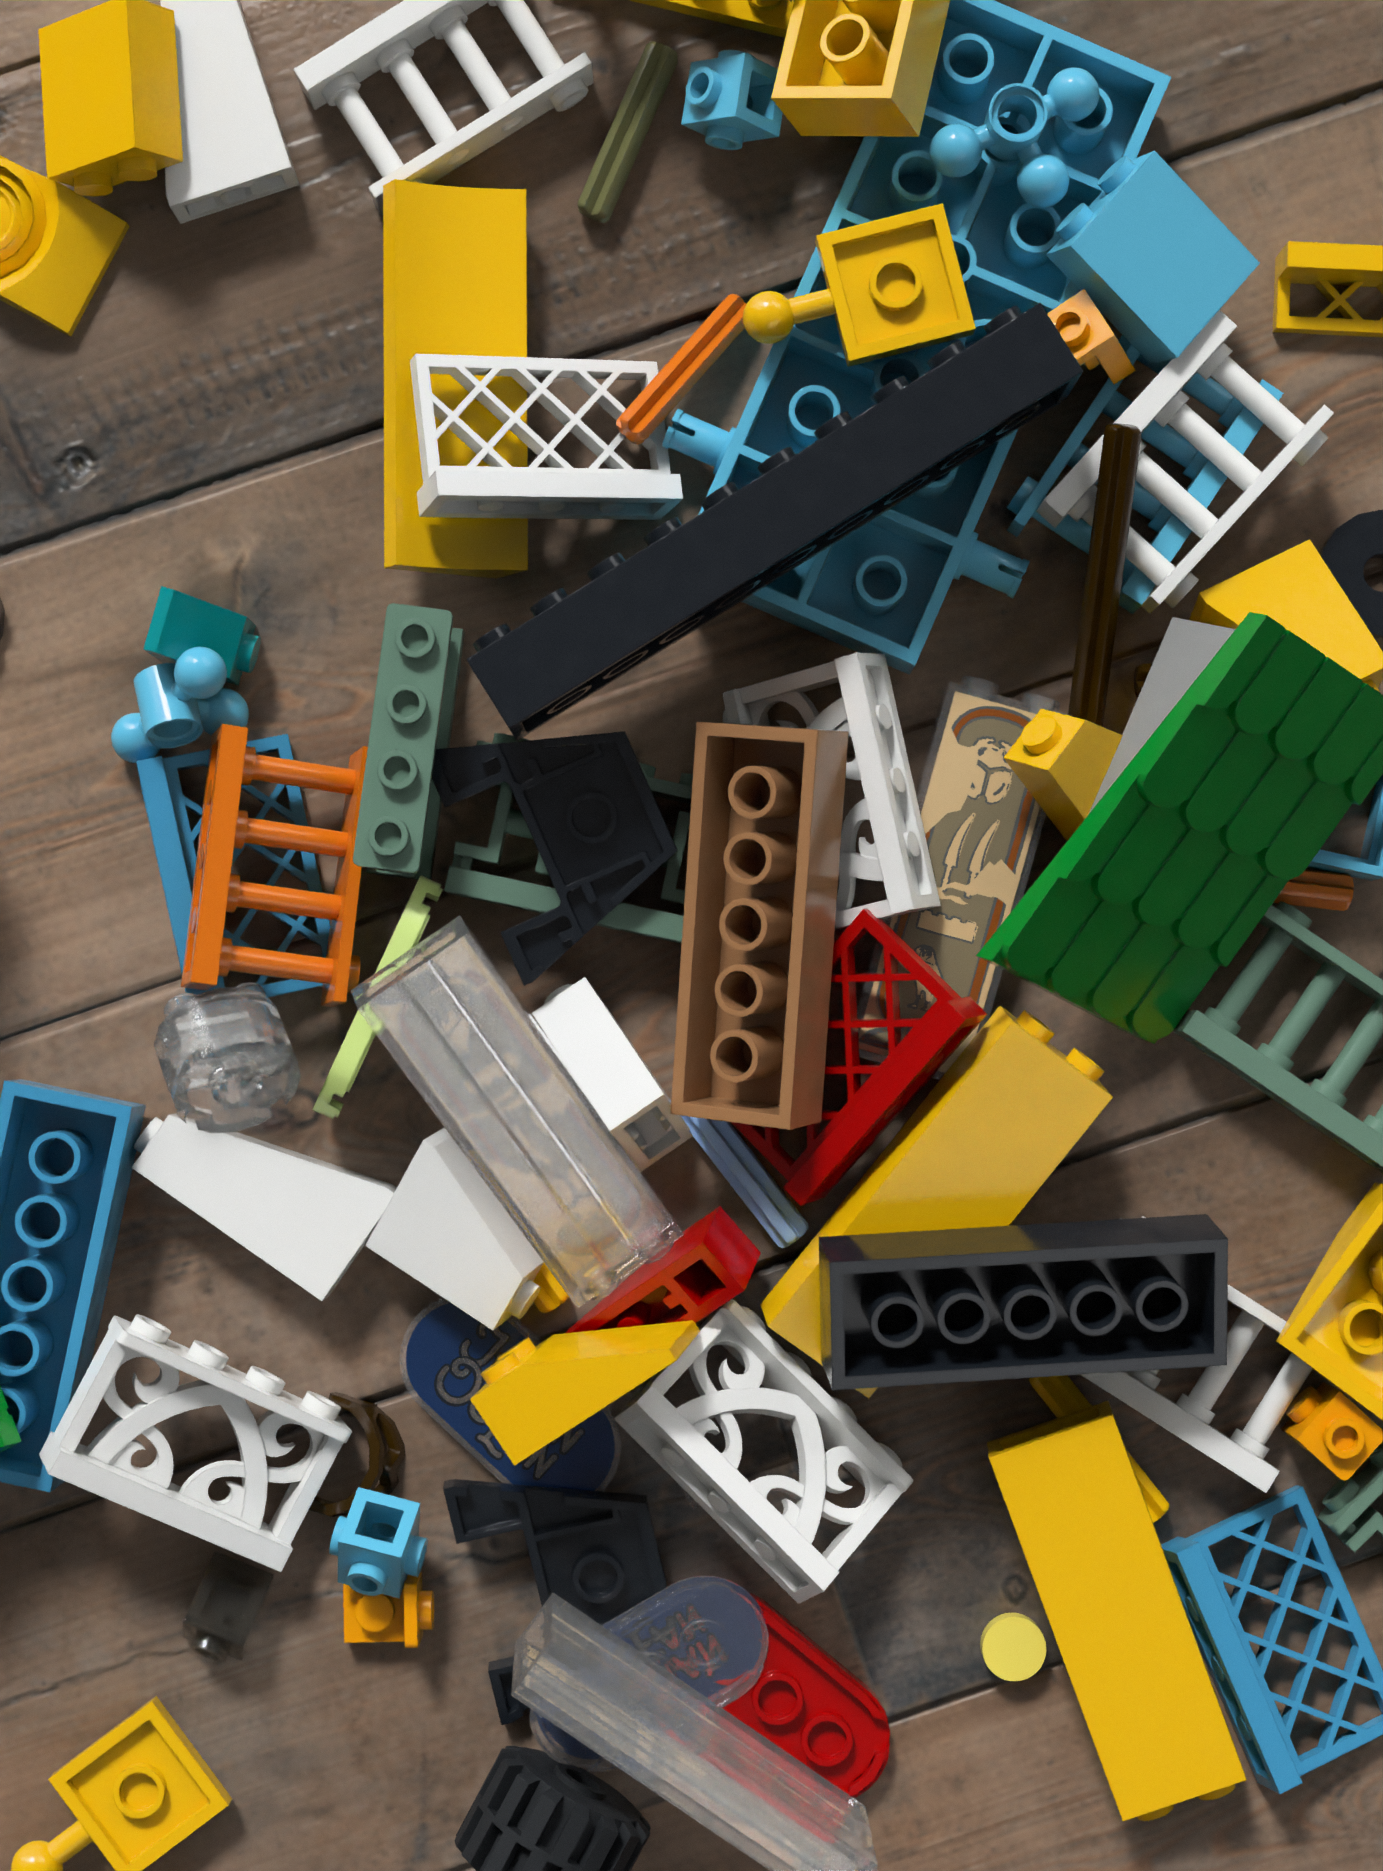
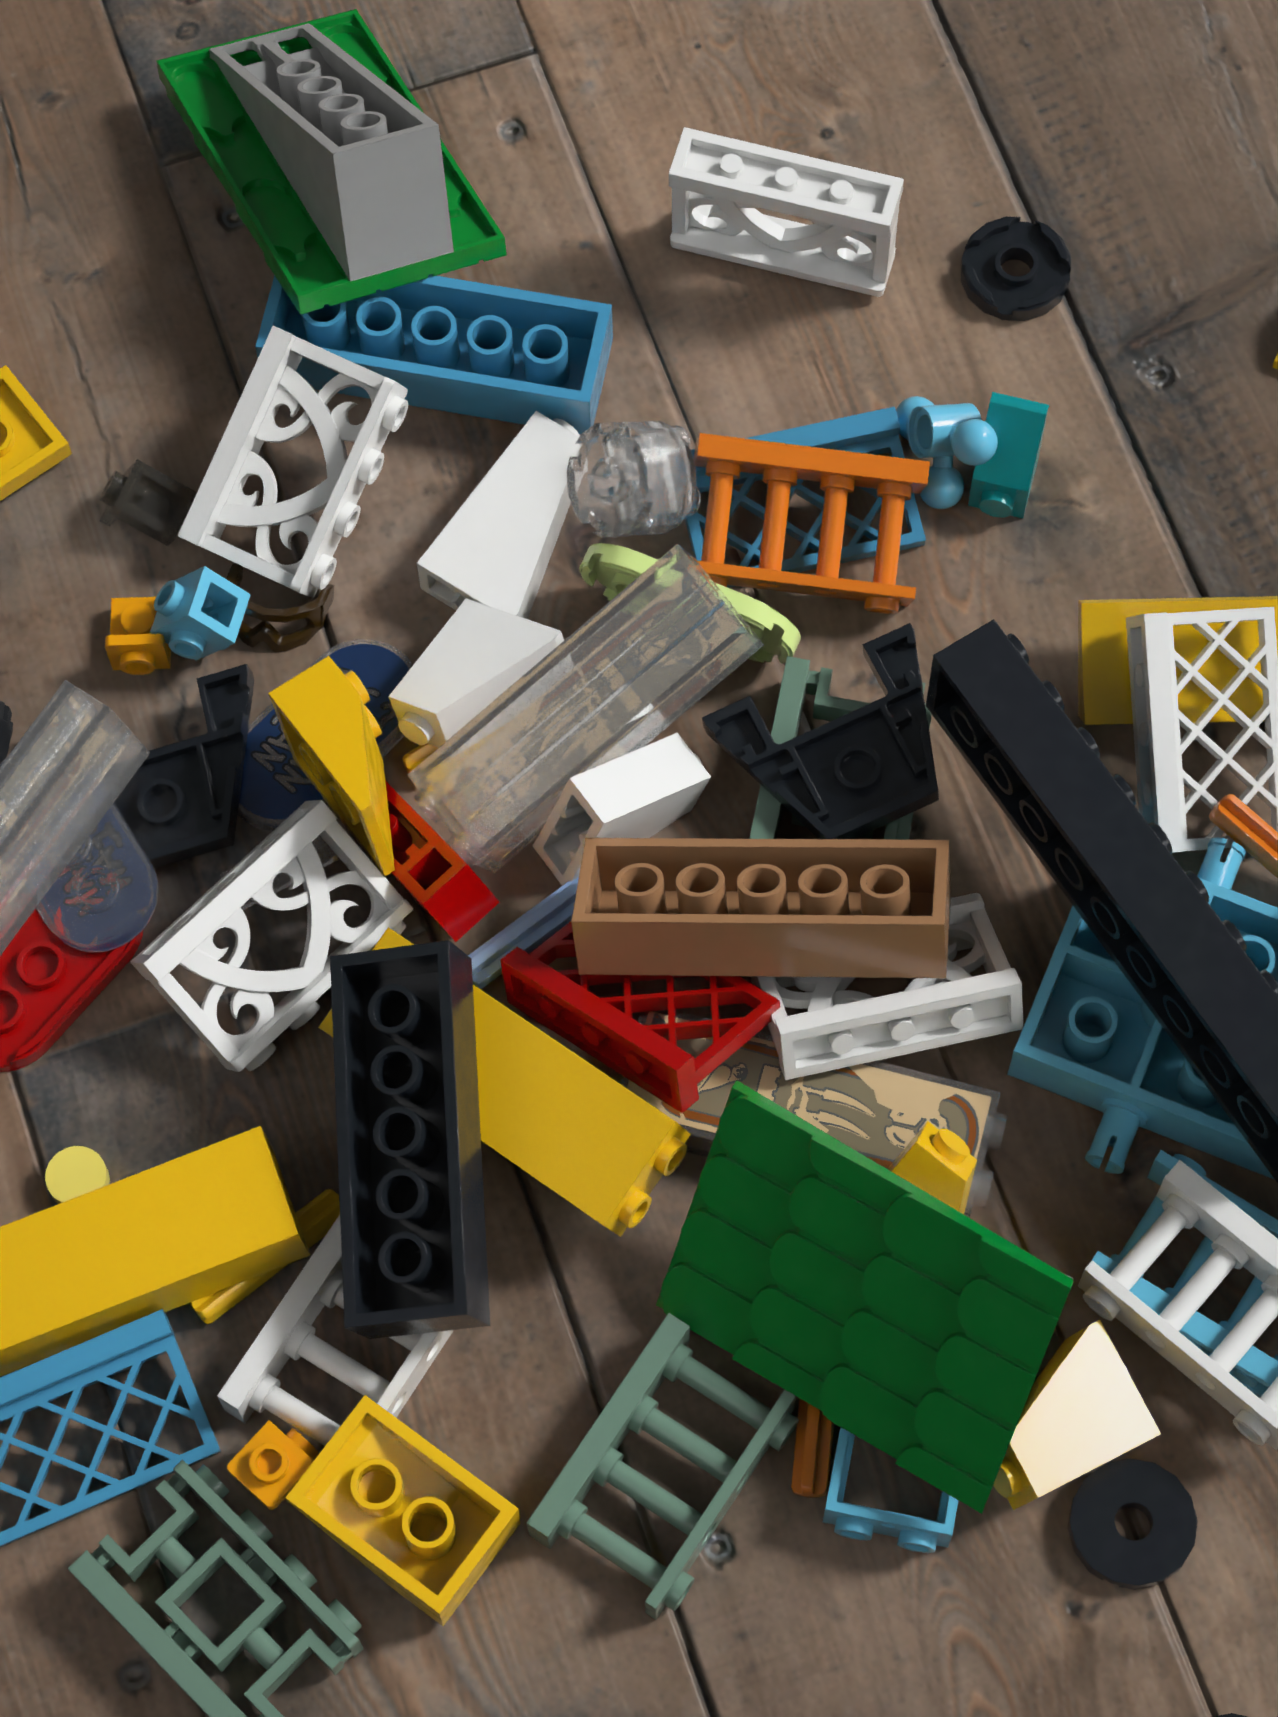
camera: 95 degrees right, 20 degrees down
(407, 726) = (863, 598): sand green fence -> none
(1104, 572) = (1120, 1222): dark brown axle -> none

